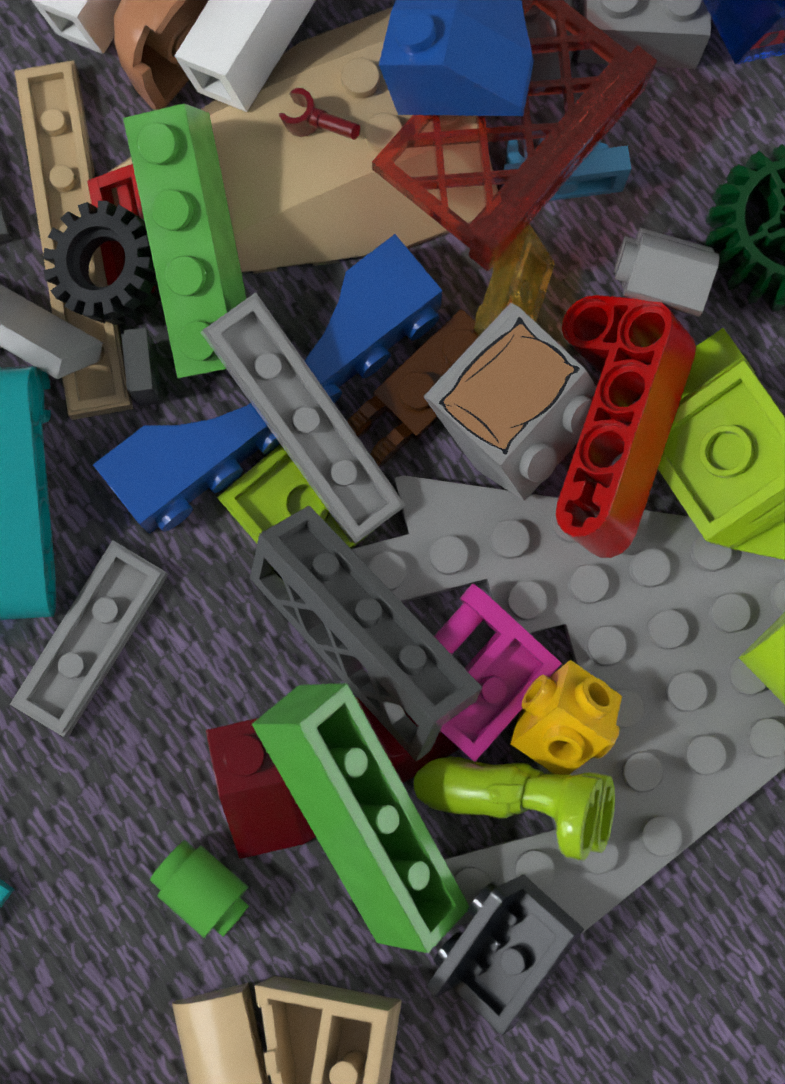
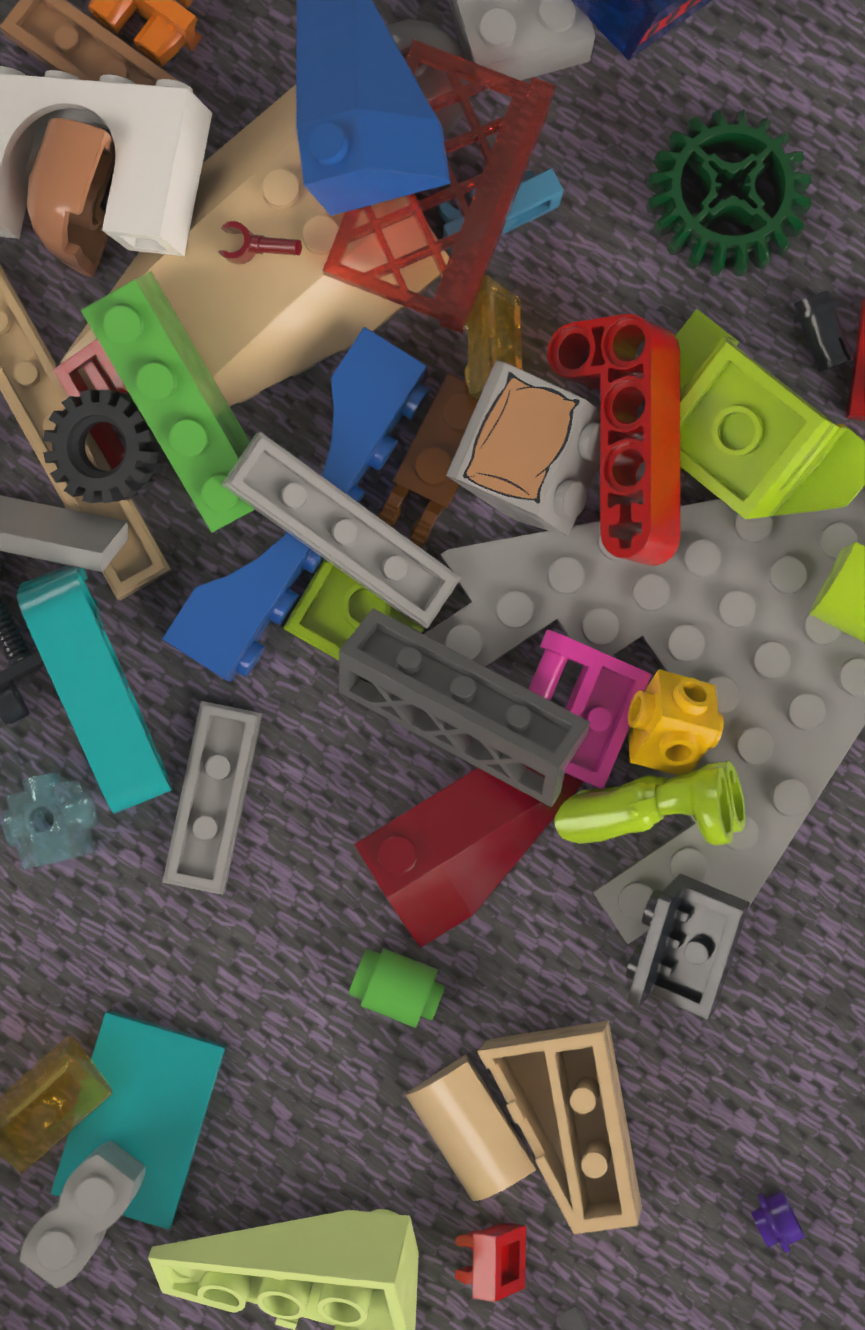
camera: 20 degrees left, 5 degrees up
(141, 366) = (169, 530): dark grey tile -> none
(362, 815) = (521, 871): bright green brick -> none
(666, 270) = (627, 277): light grey brick -> none

